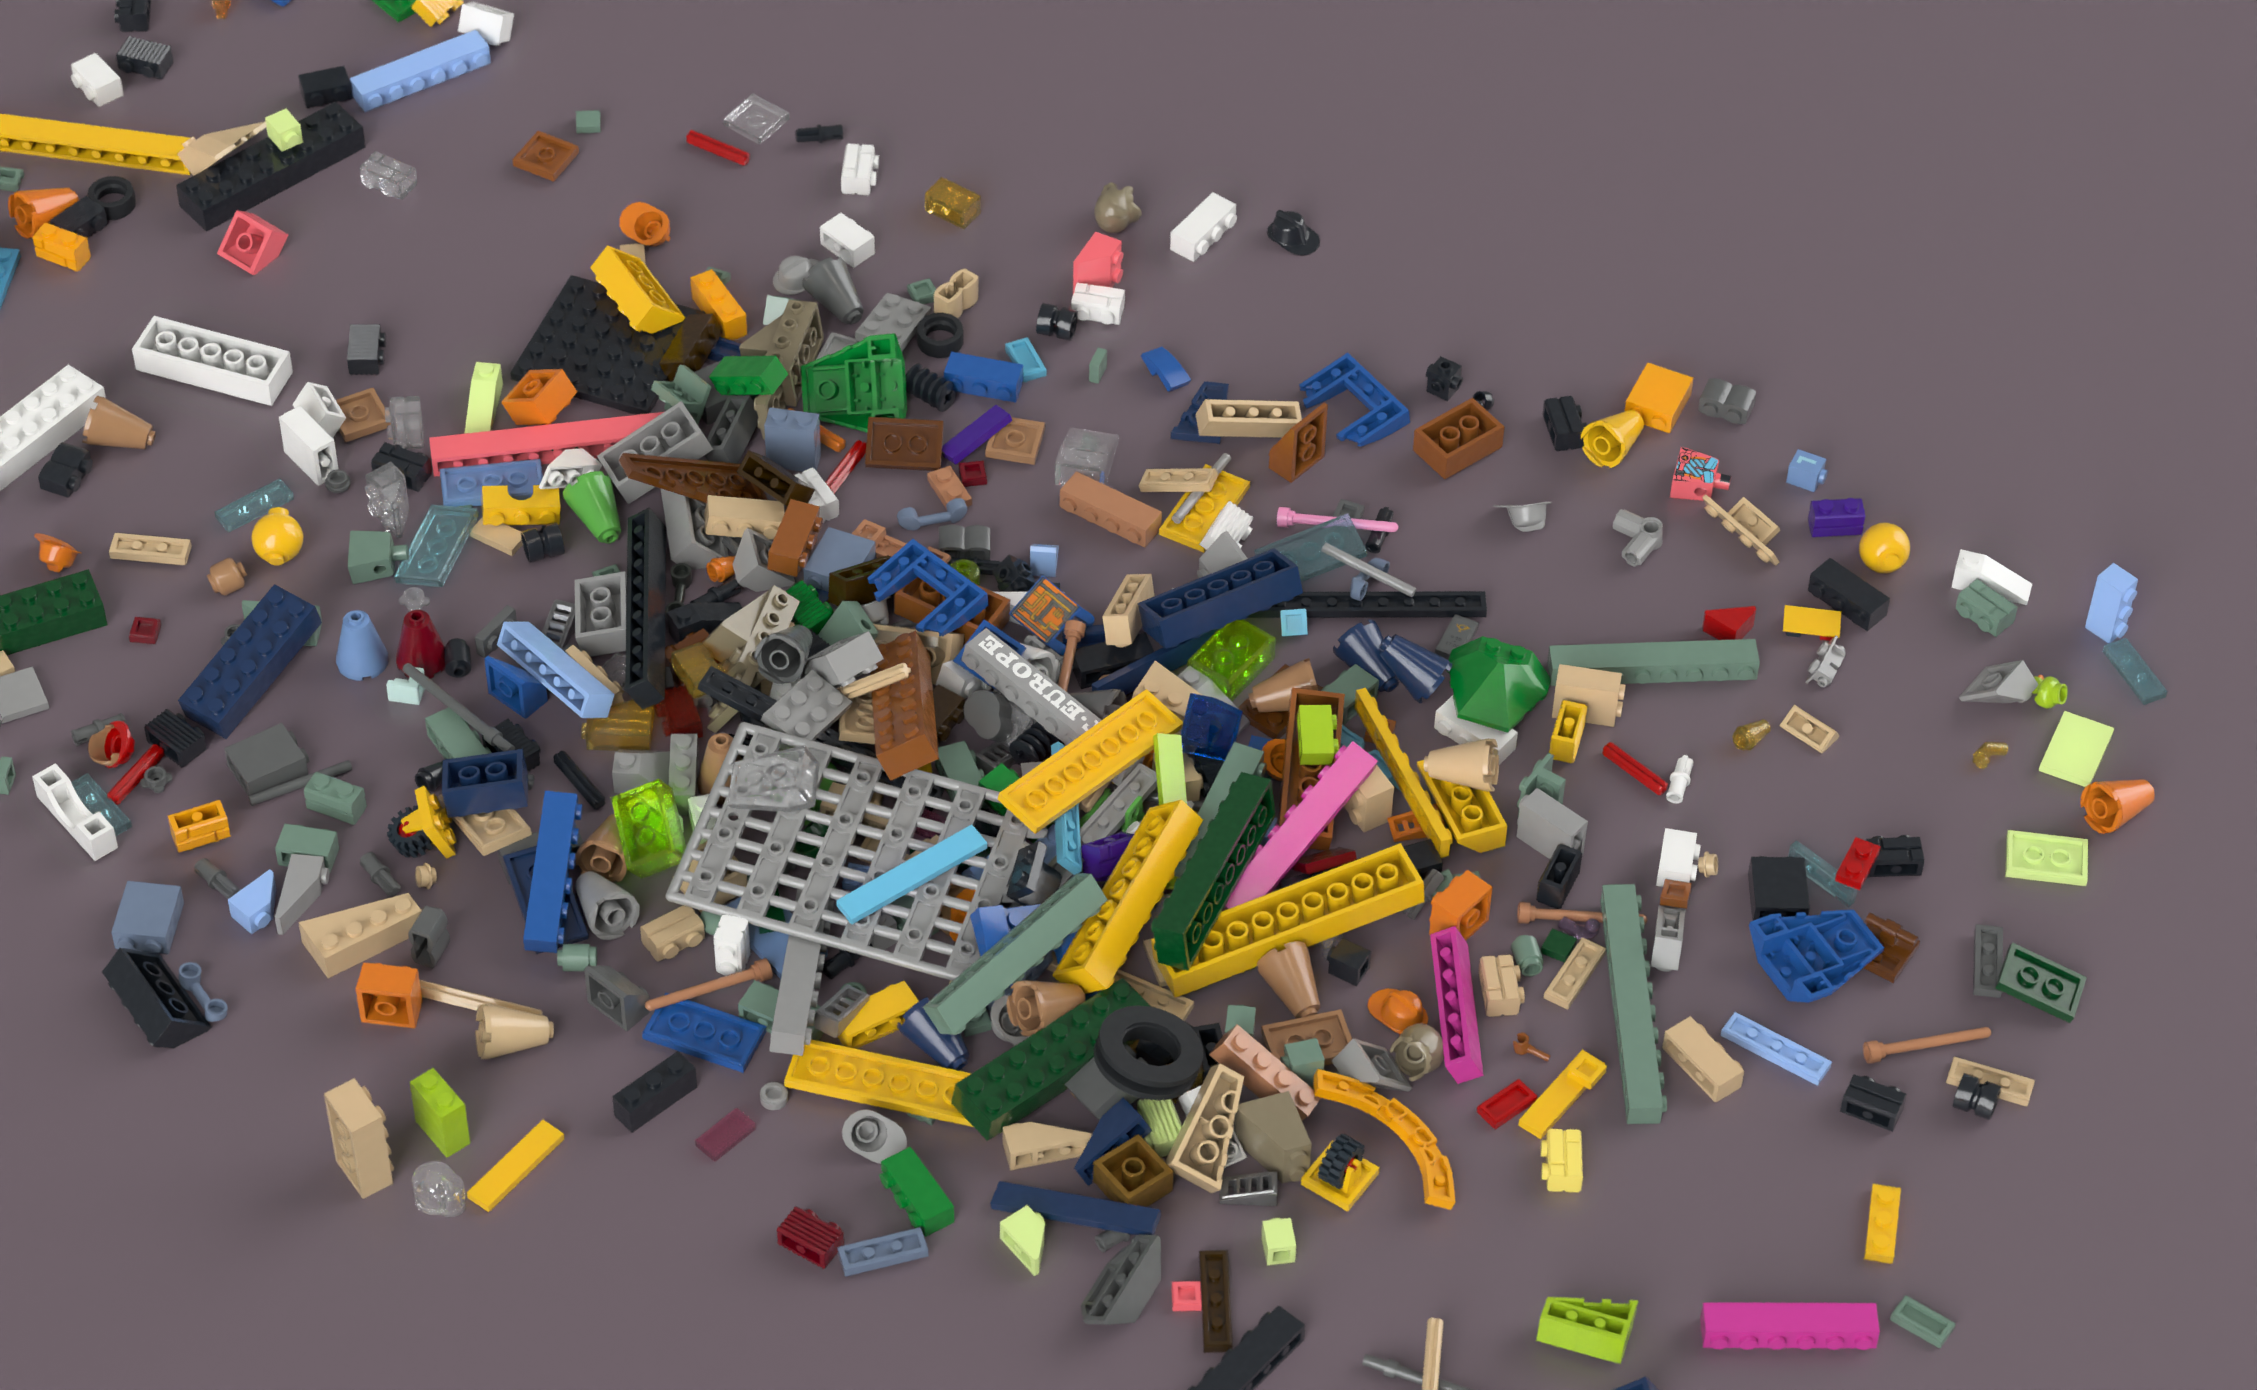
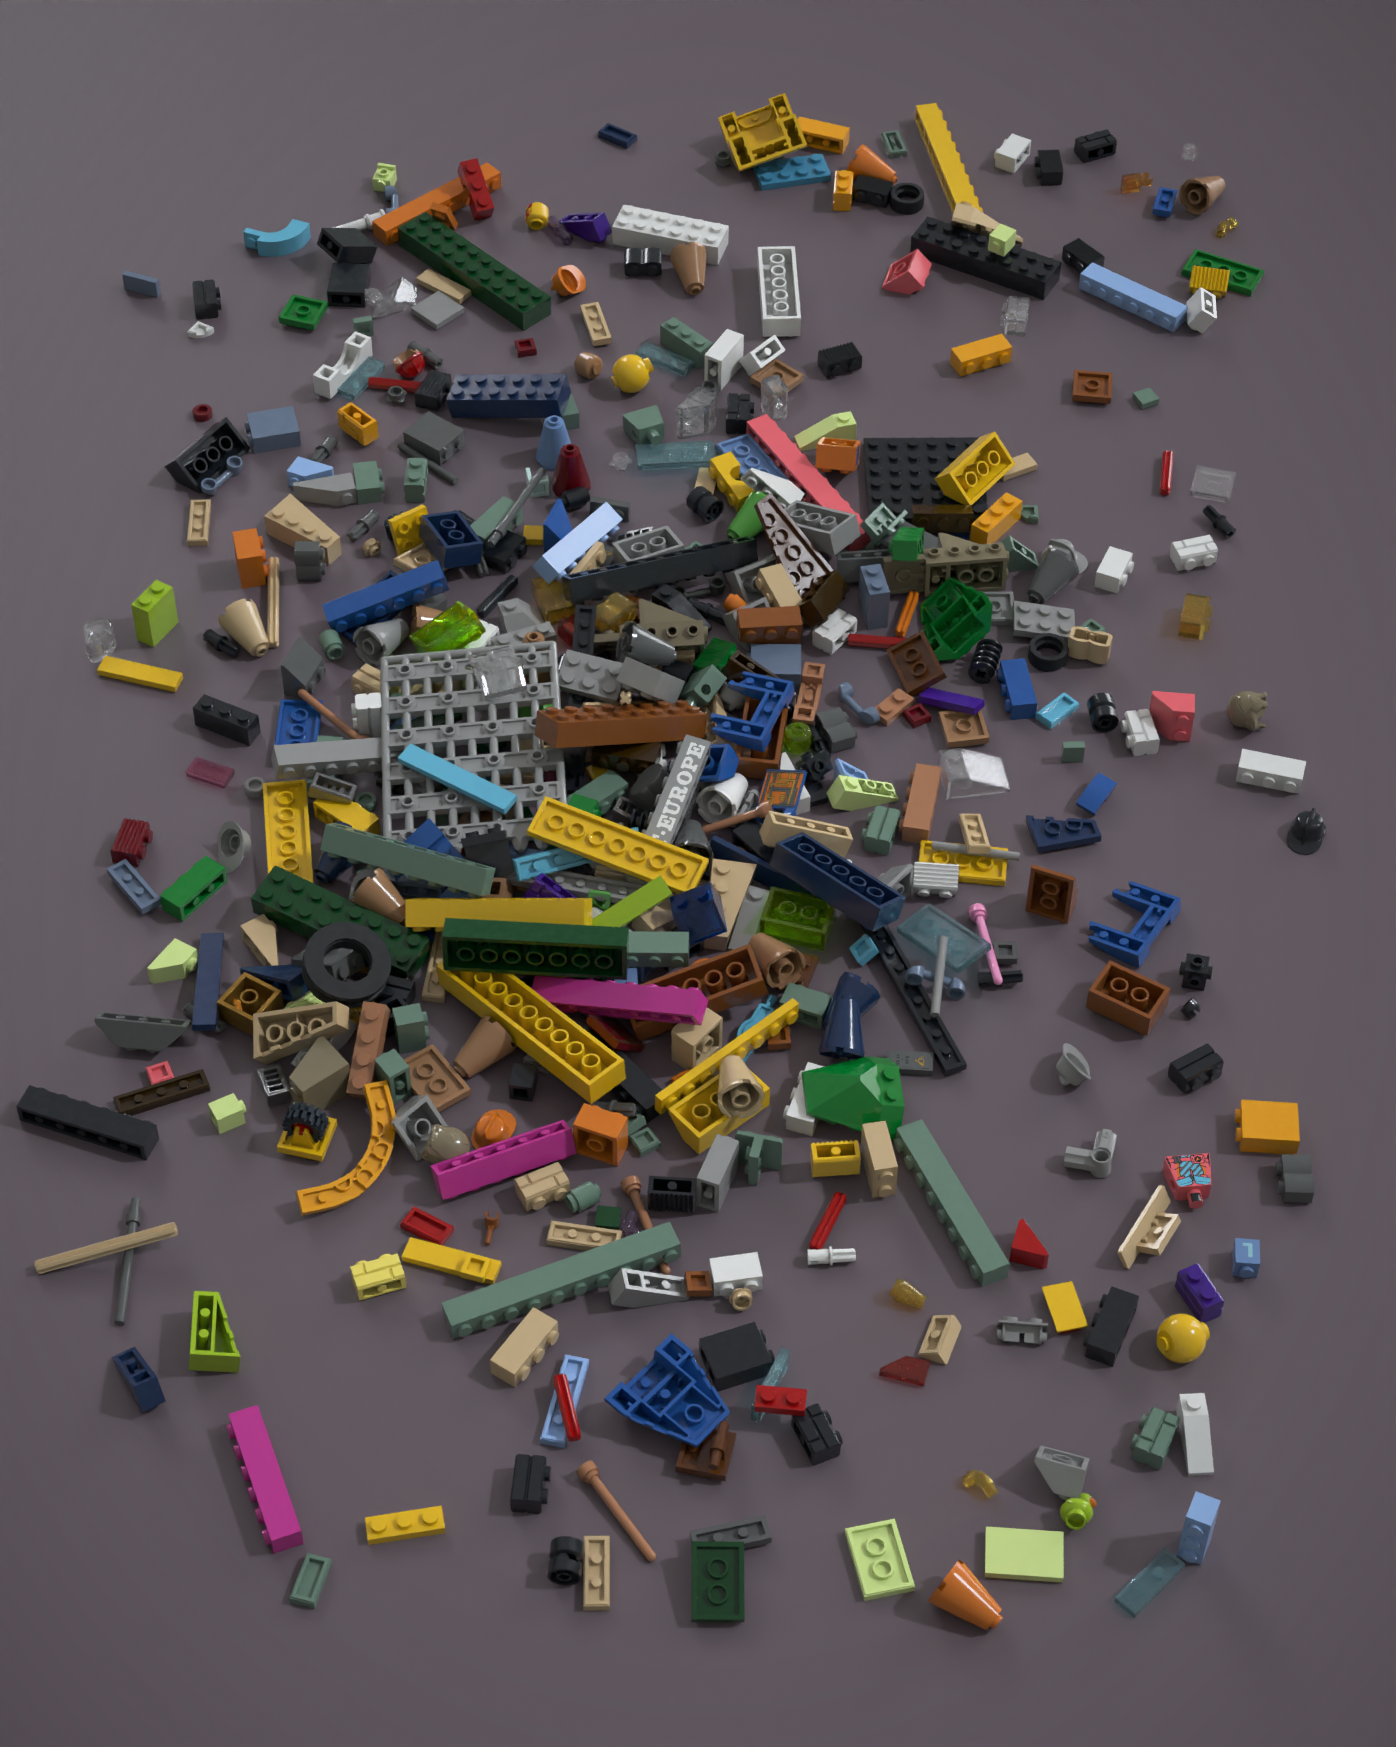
camera: 70 degrees right, 0 degrees up
(59, 987) = (202, 413): none -> dark red tile
(246, 473) = (684, 341): none -> sand green brick
(270, 1041) = (199, 522): none -> tan tile
(359, 1137) = (104, 574): tan brick -> none
(436, 227) = (980, 355): none -> light orange brick
(493, 714) = (533, 534): none -> yellow tile
(510, 1068) = (221, 643): none -> black axle
(645, 224) = (1051, 457): orange piece -> none
(1070, 555) = (858, 793): none -> yellowish green slope
(1131, 553) = (881, 830): none -> sand green brick
(1247, 418) = (1059, 850): tan brick -> none
(1315, 734) = (709, 971): lime brick -> none
(1611, 438) = (1199, 1105): yellow cone -> none
(1794, 1042) = (567, 1407): none -> red axle
(1839, 765) = (907, 1370): none -> clear red tile

